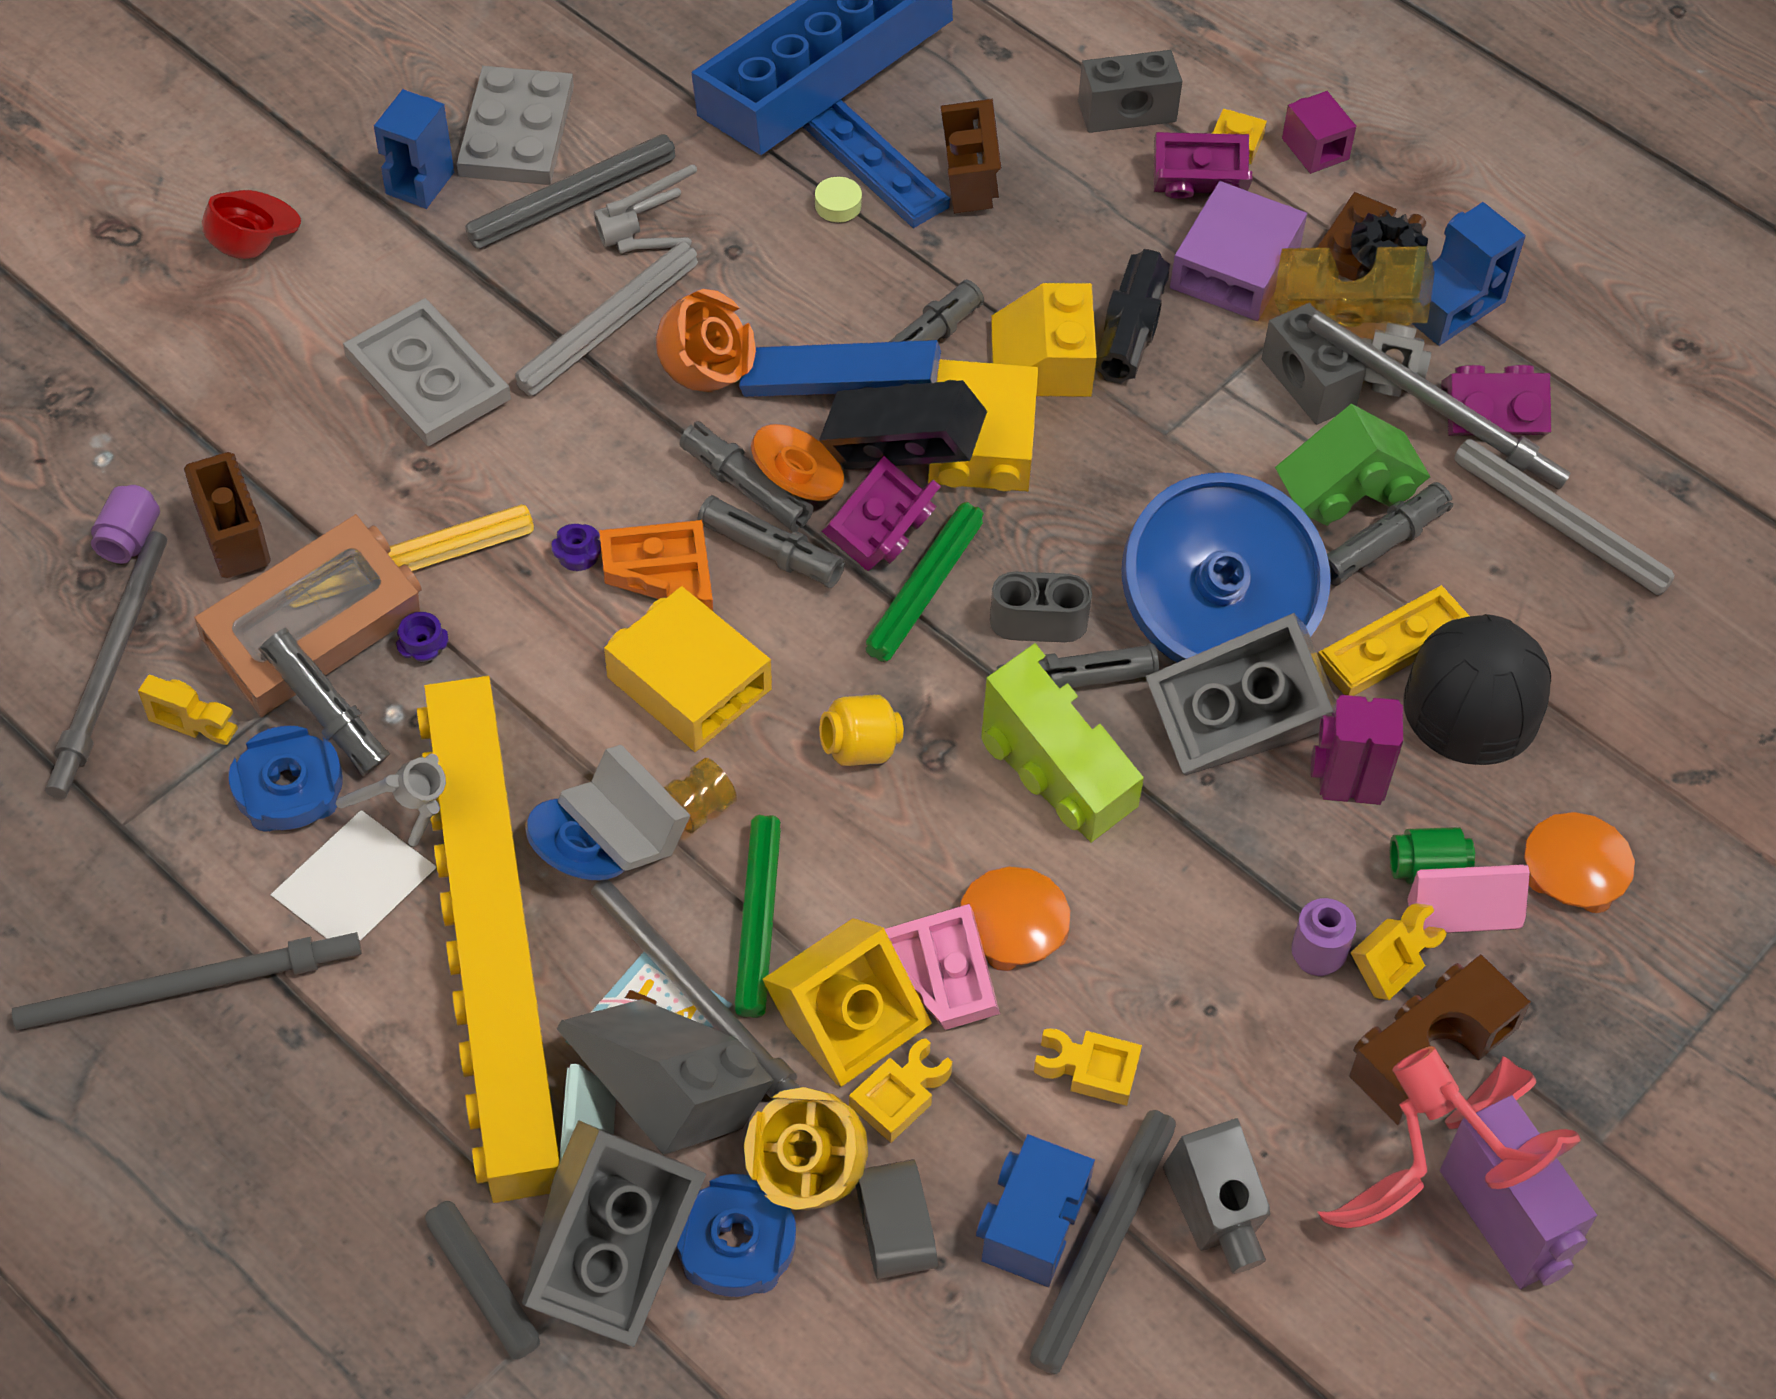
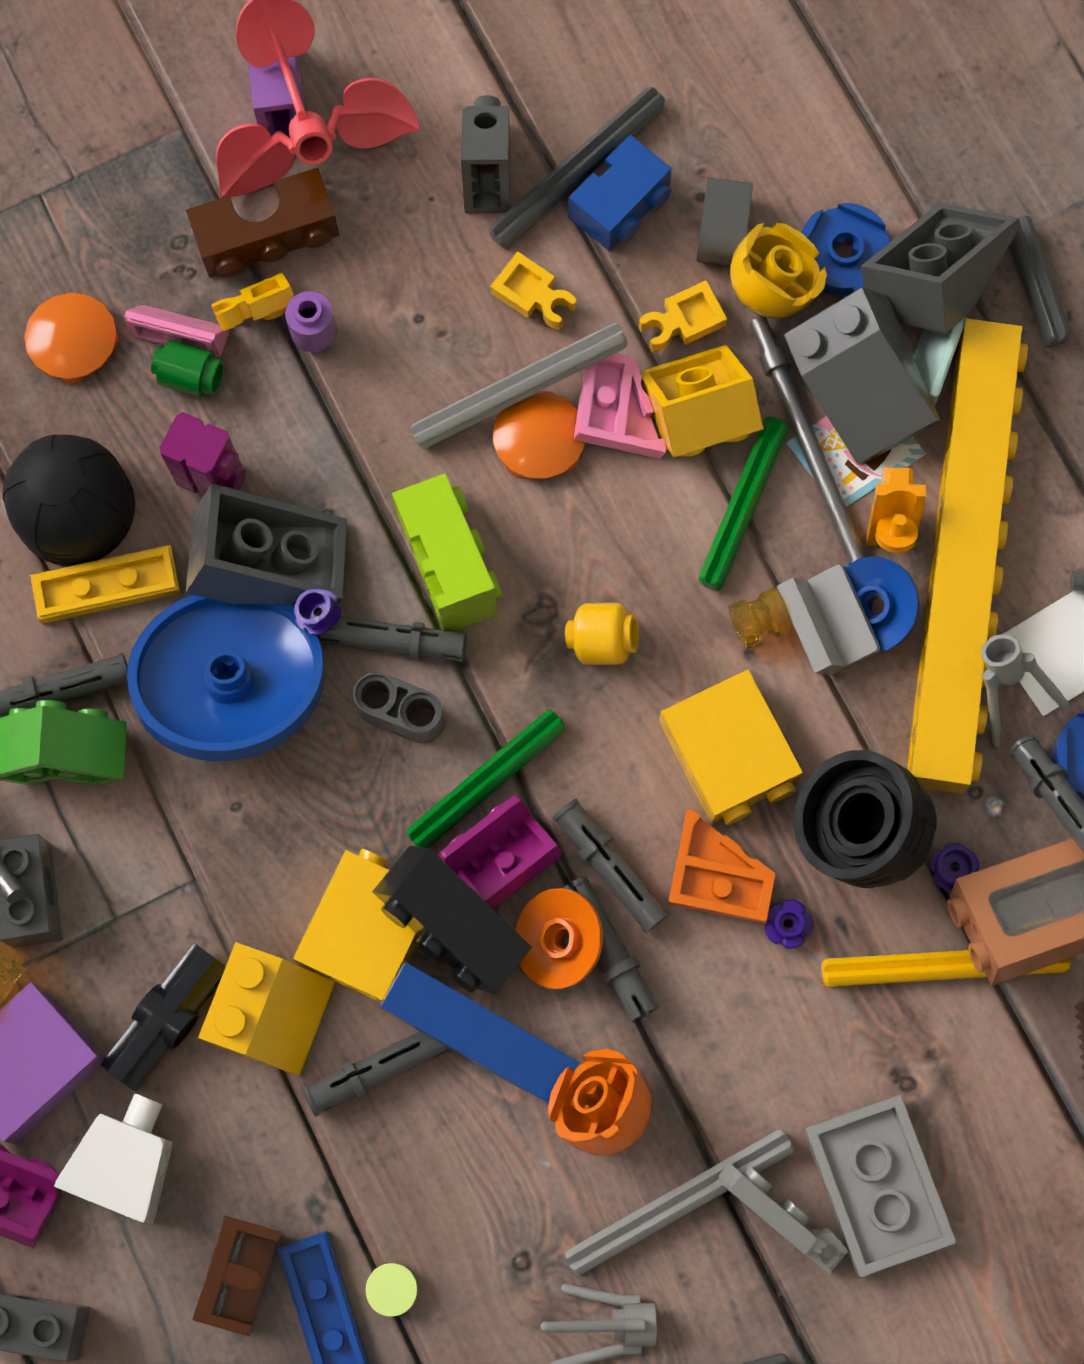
camera: 155 degrees left, 20 degrees up
(514, 315) = (788, 1220): none -> light grey hinge
(523, 607) = (864, 820): none -> black piece
(579, 922) = (896, 511): none -> light orange hips
(1055, 942) = (519, 385): none -> light grey axle
(1111, 207) = (121, 1163): none -> white torso
(1163, 646) = (312, 601): none -> dark purple plate

